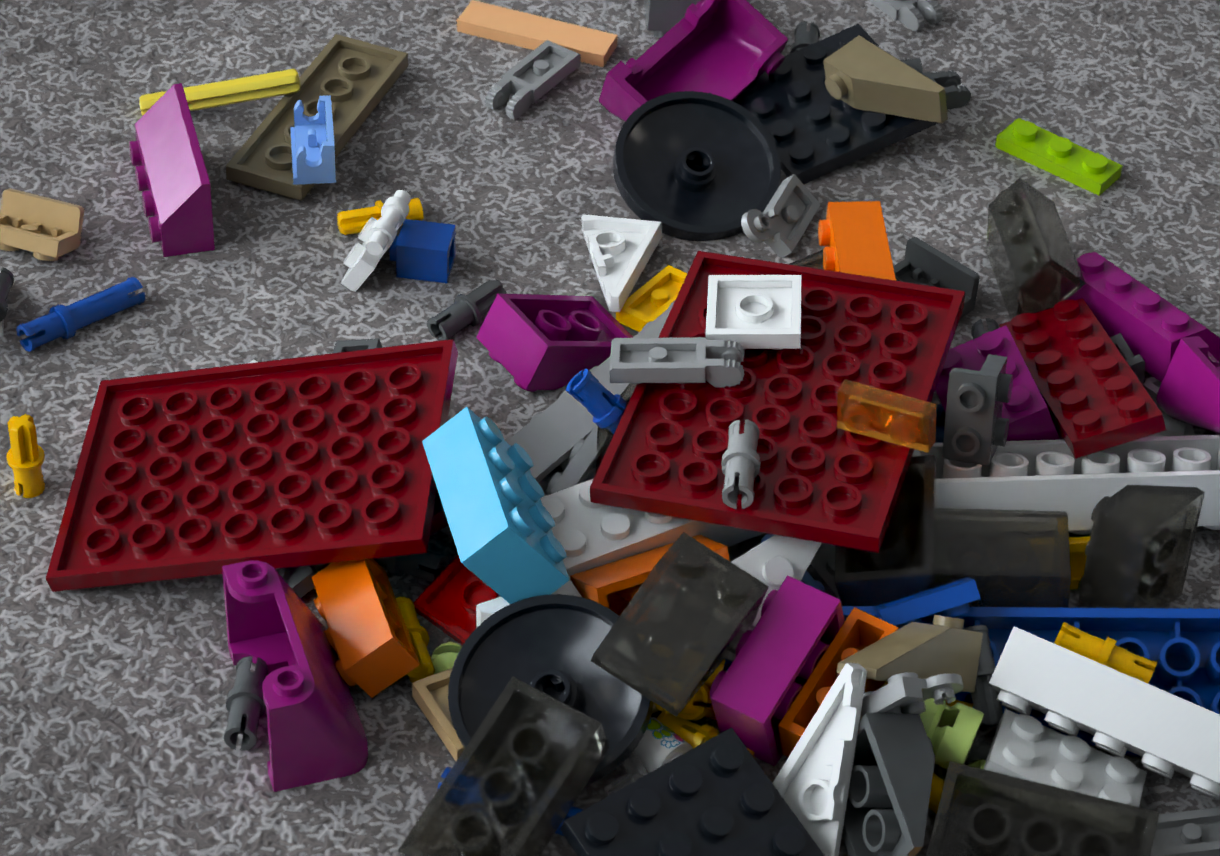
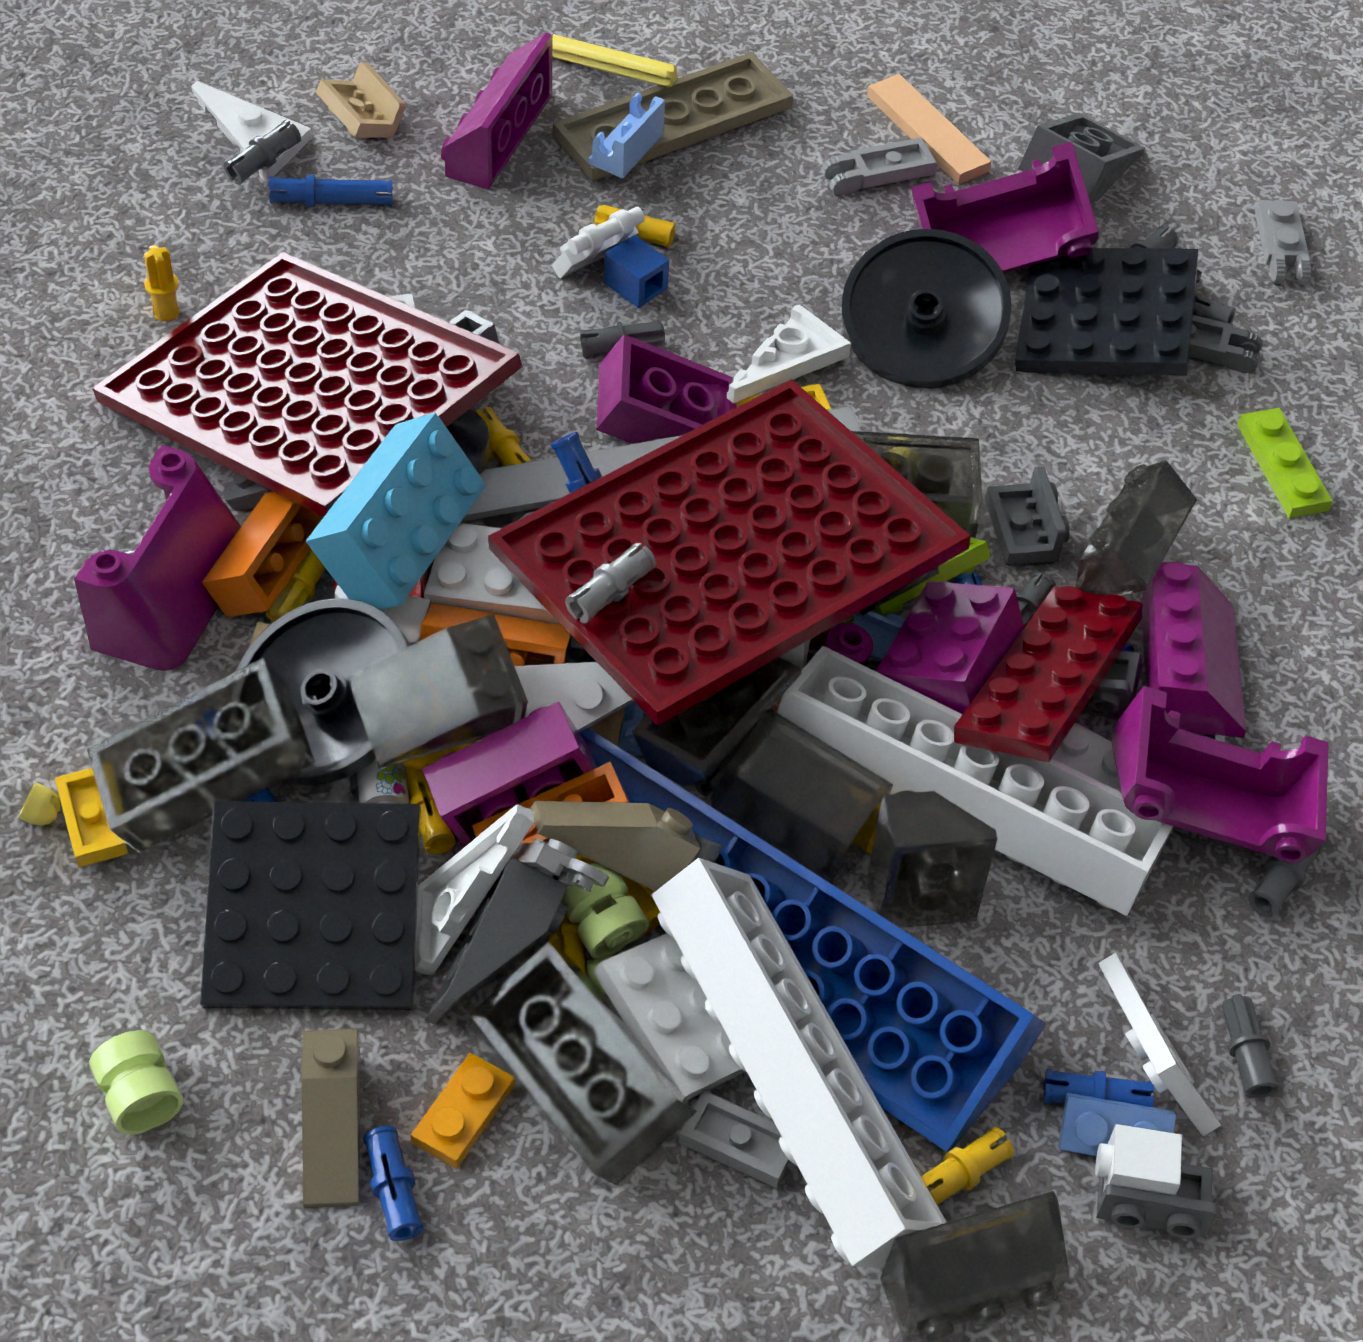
camera: 35 degrees right, 10 degrees up
(676, 361) = (656, 464): light grey hinge -> none
(755, 310) = (763, 456): white plate -> none
(783, 218) = (961, 393): light grey hinge -> none
(856, 240) = (956, 452): orange brick -> none
(882, 84) = (1145, 310): dark tan slope -> none
(886, 416) = (765, 610): clear orange plate -> none
(948, 599) = (705, 801): blue plate -> none
(975, 411) = (882, 650): dark grey bracket -> none
(1105, 652) = (803, 933): yellow pin -> none

